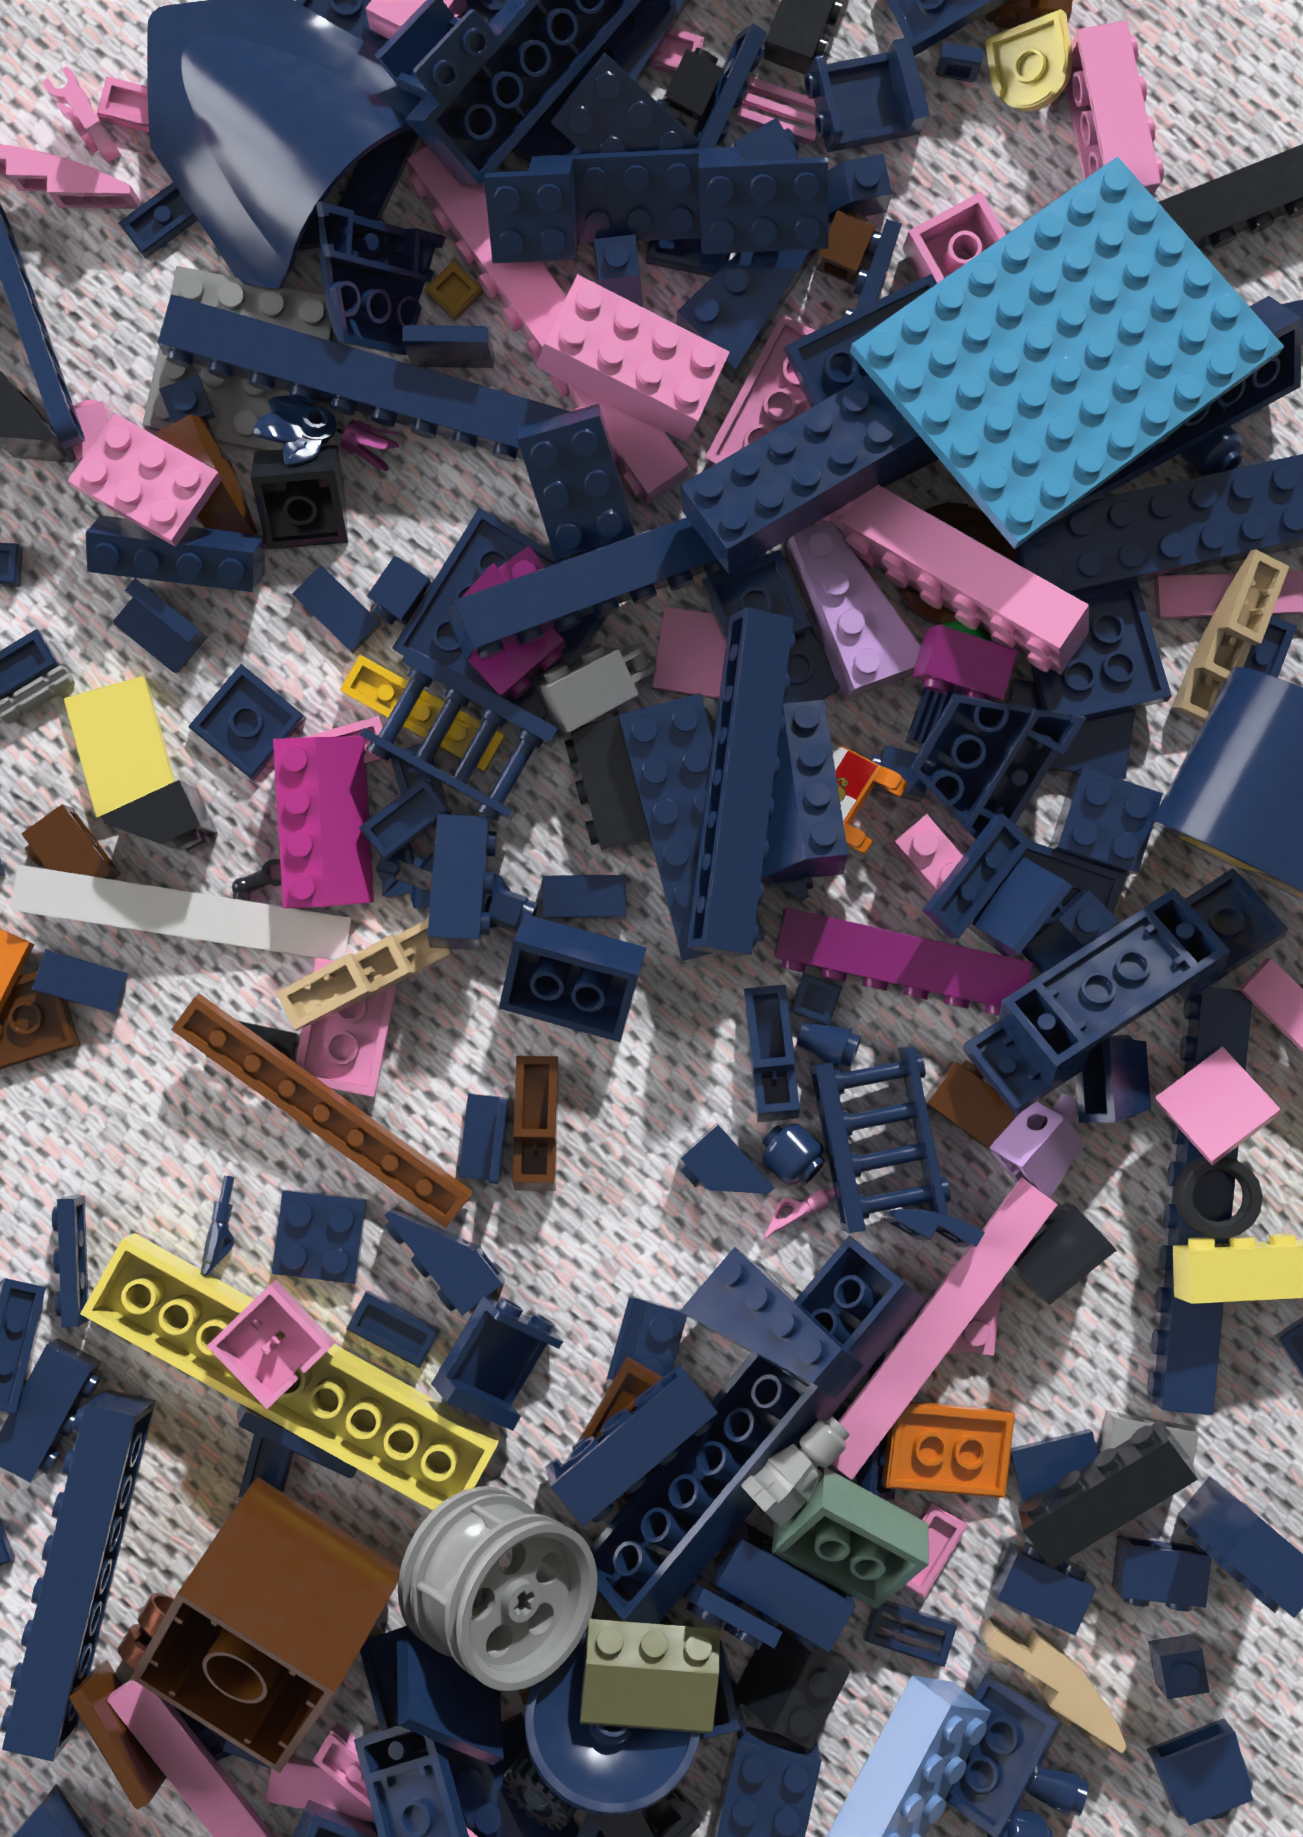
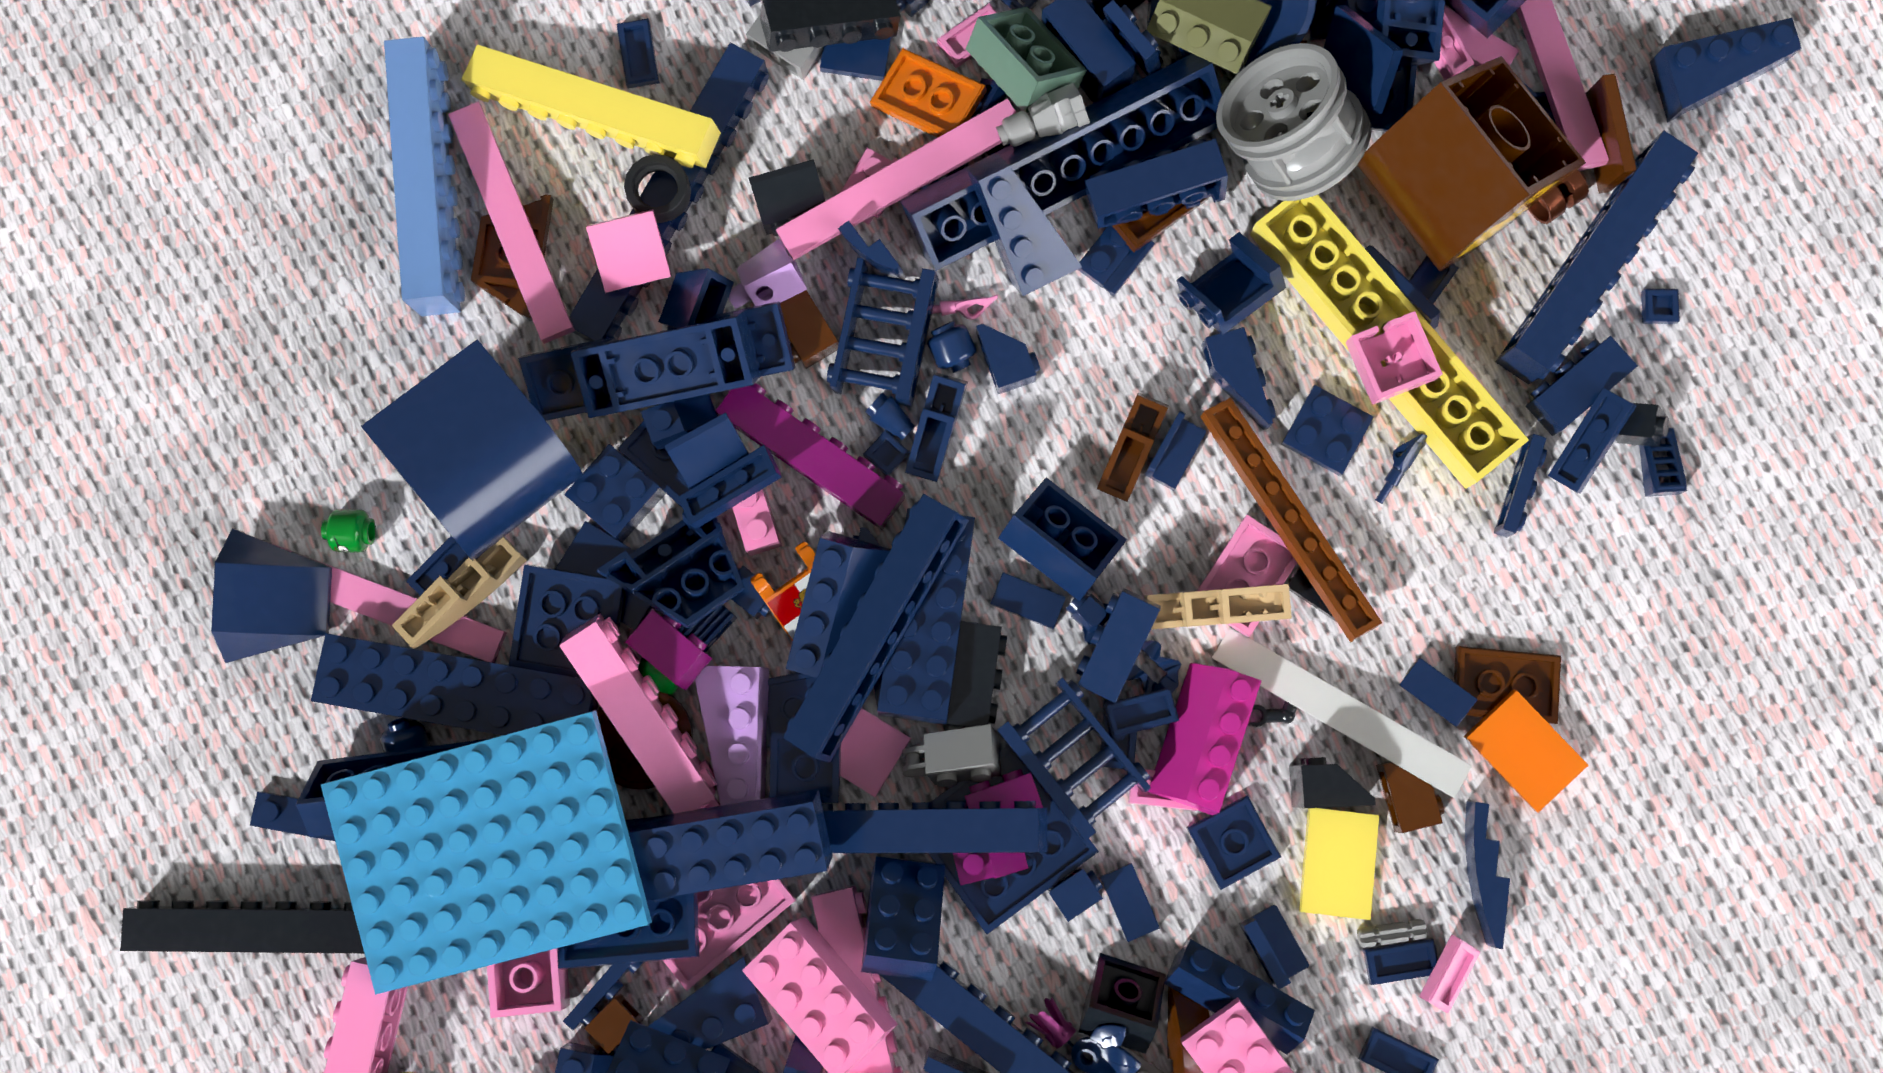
camera: 150 degrees left, 5 degrees down
(380, 691) = (1118, 819): yellow plate -> none
(393, 1329) = (1298, 341): dark blue tile -> none

